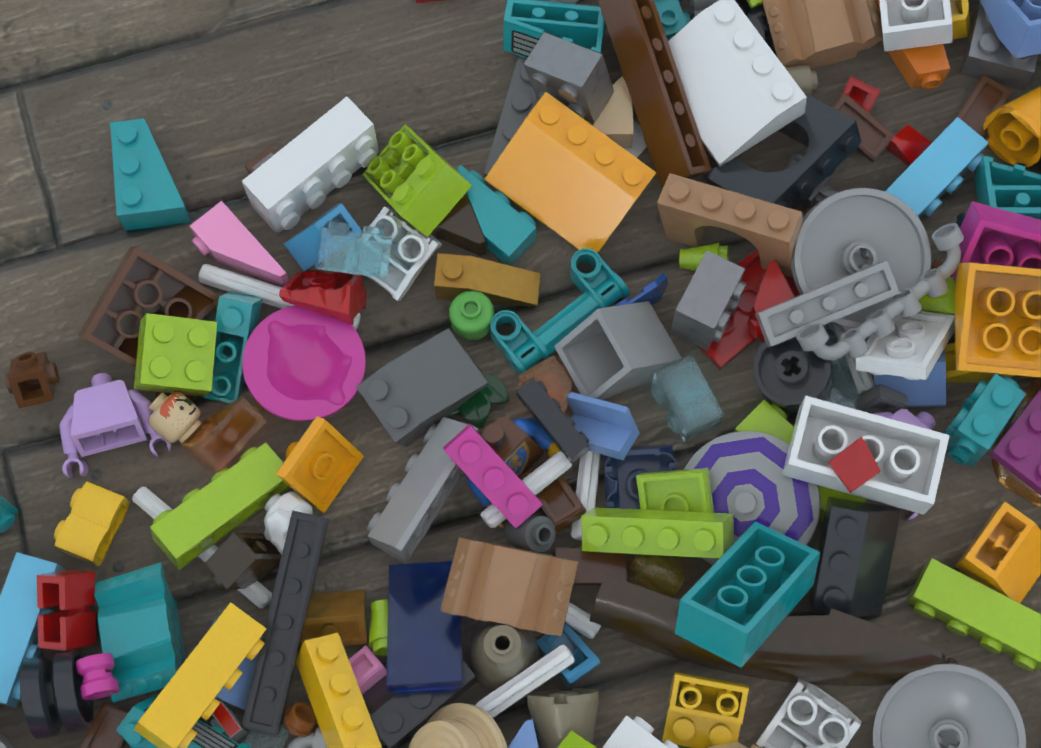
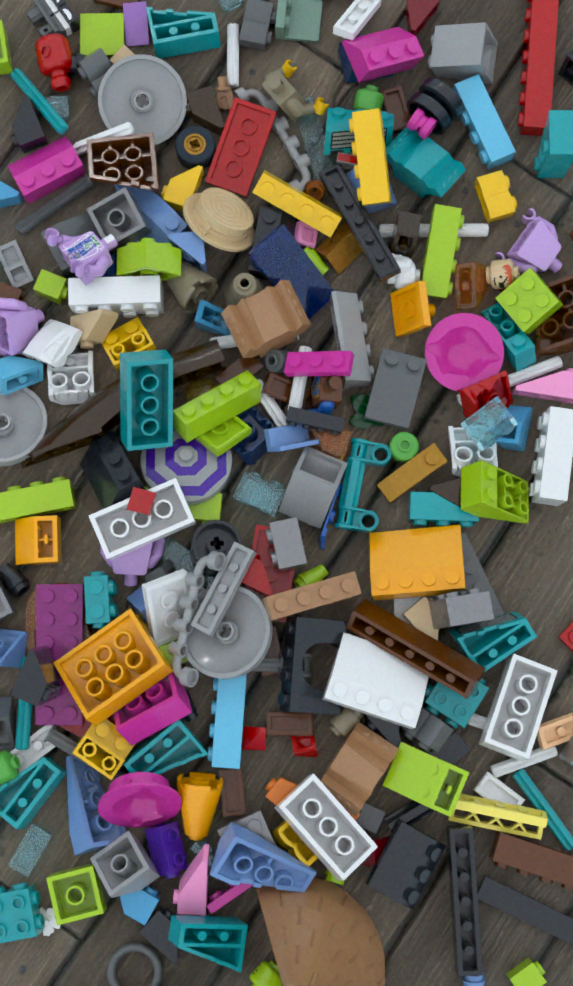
camera: 135 degrees right, 10 degrees up
(75, 623) = (460, 145): red piece -> none
(527, 681) = (222, 284): white axle -> none

